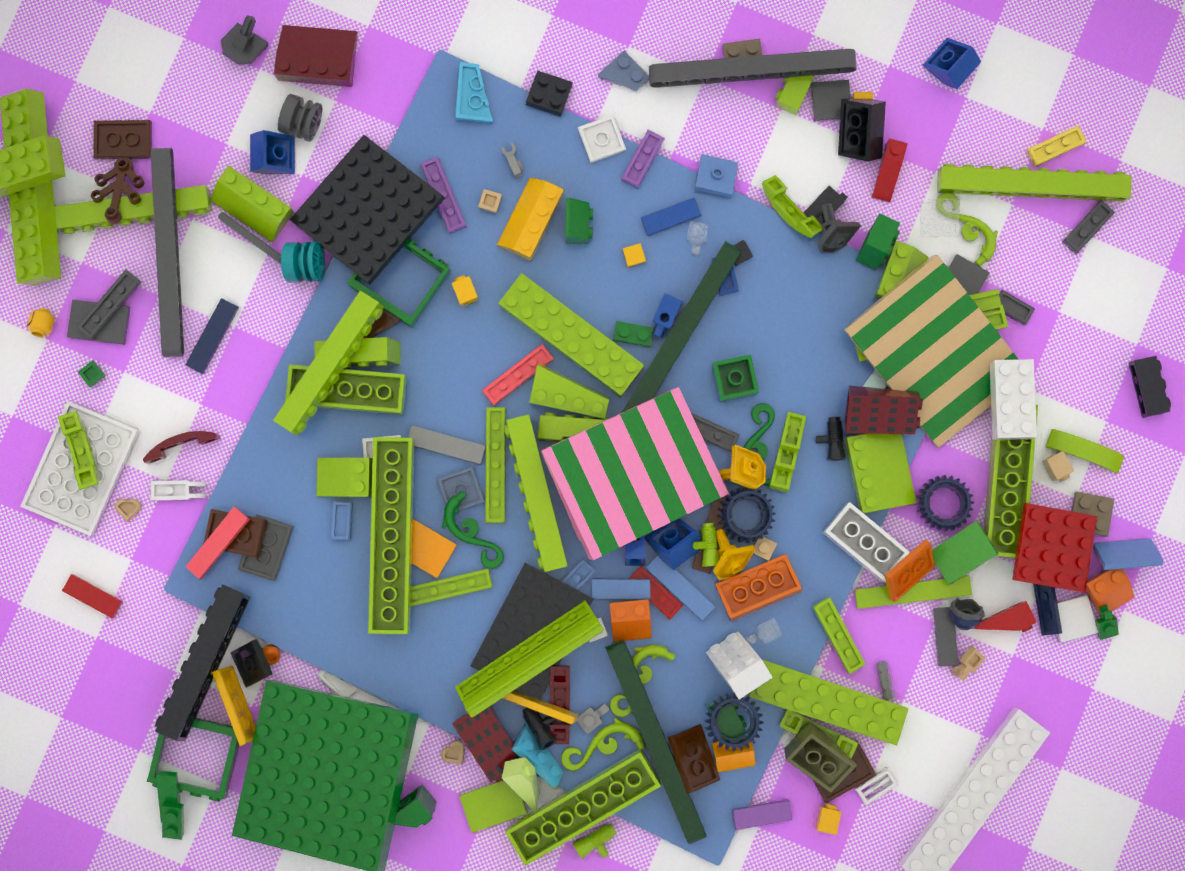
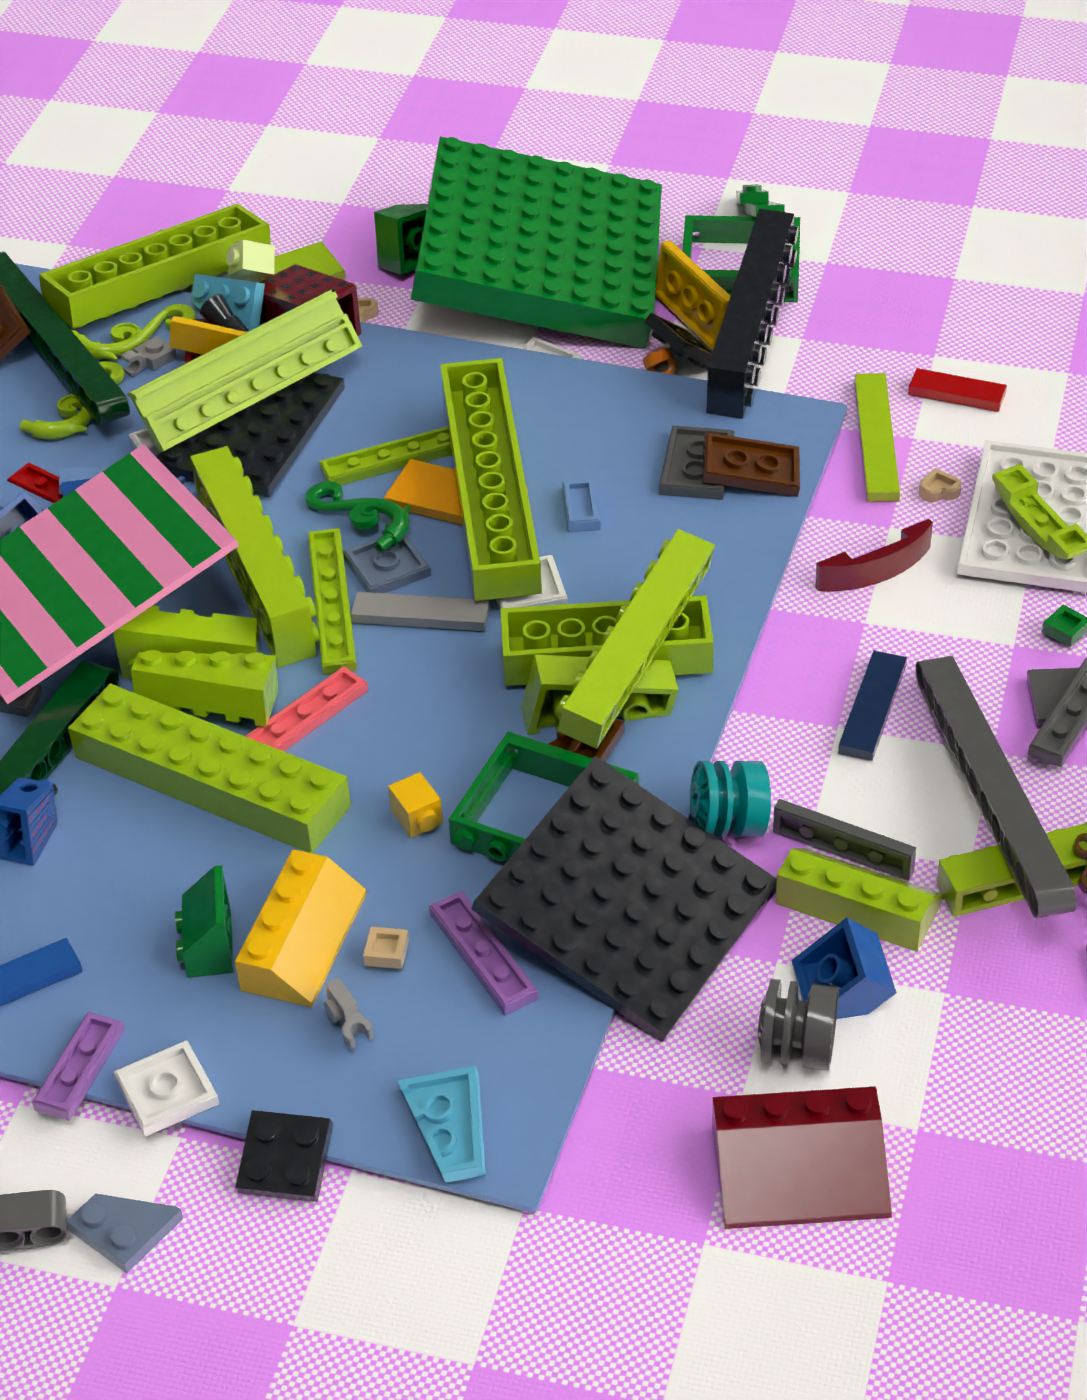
camera: 175 degrees right, 40 degrees down
(153, 561) = (876, 437): none -> lime tile
(175, 490) = (864, 510): white hinge -> none
(217, 543) = (772, 443): coral tile -> none
(242, 44) = (965, 1152): dark grey piece -> none
(344, 477) = (581, 541): lime slope -> none
(630, 620) = (91, 449): orange slope -> none
(633, 334) = (94, 795): green plate -> none
(634, 255) = (94, 907): yellow tile -> none

